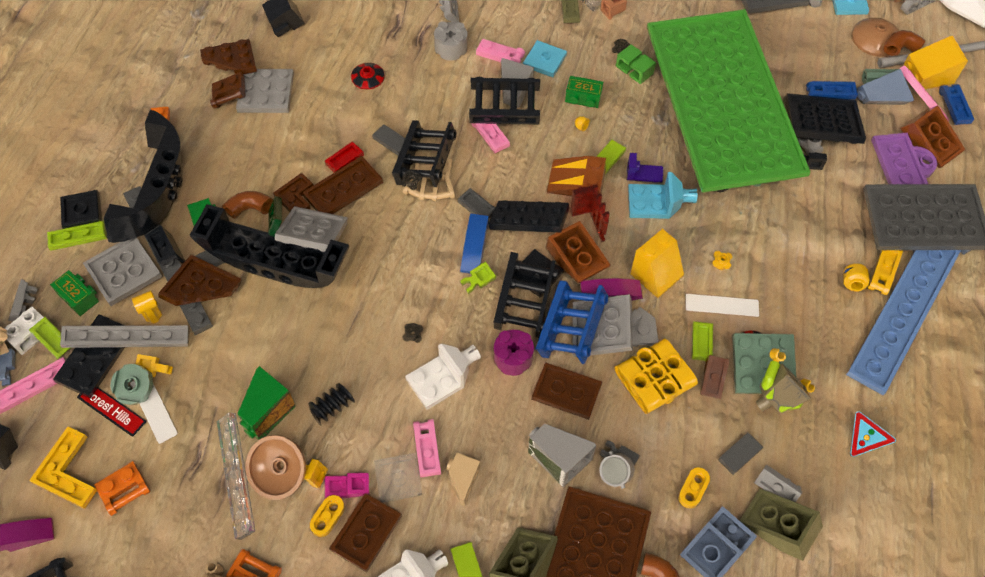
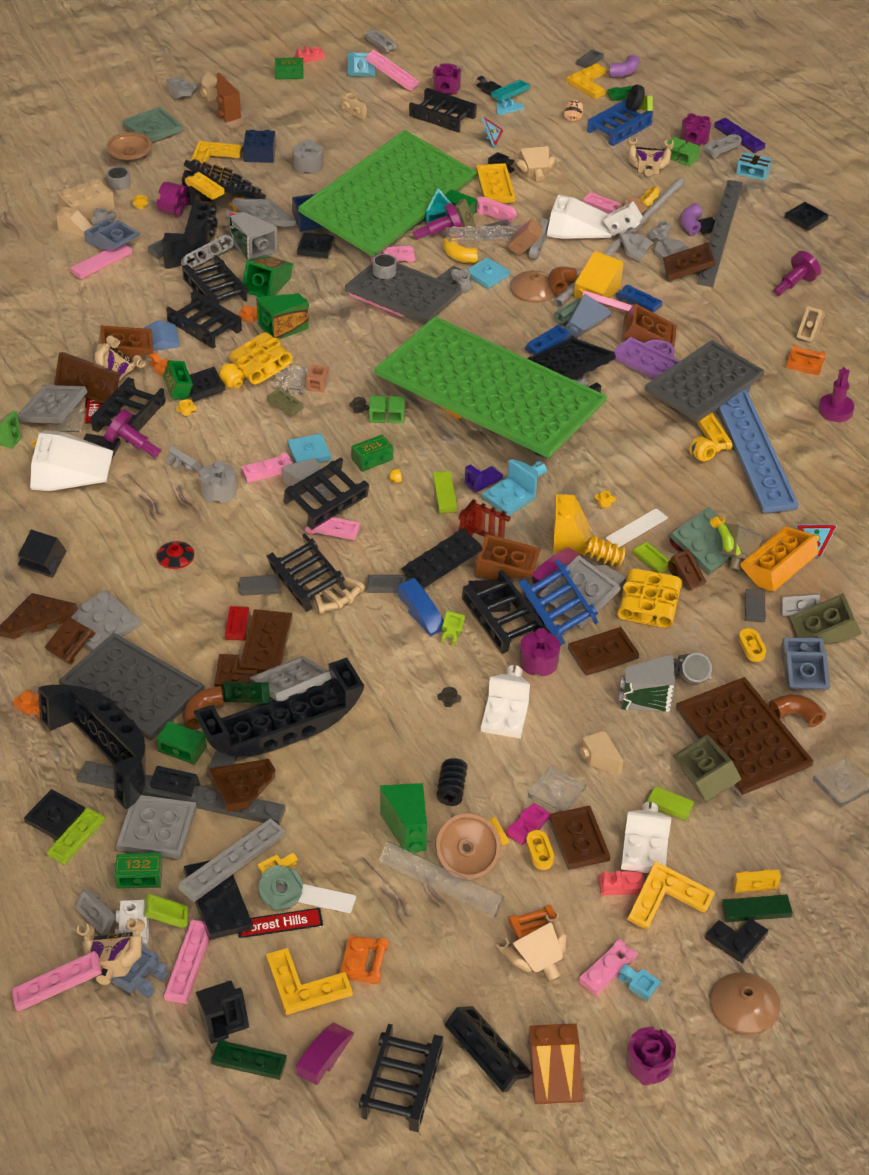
camera: 45 degrees left, 15 degrees down
(147, 306) = (223, 826): yellow piece -> none
(227, 153) = (136, 682): none -> dark grey plate
(408, 176) = (321, 590): clear smoke plate -> none
(427, 449) = (553, 756): bright pink plate -> none
(576, 172) = (440, 510): dark orange slope -> none
(661, 305) = (604, 551): none -> yellow piece
(808, 430) = (780, 558): none -> light orange slope

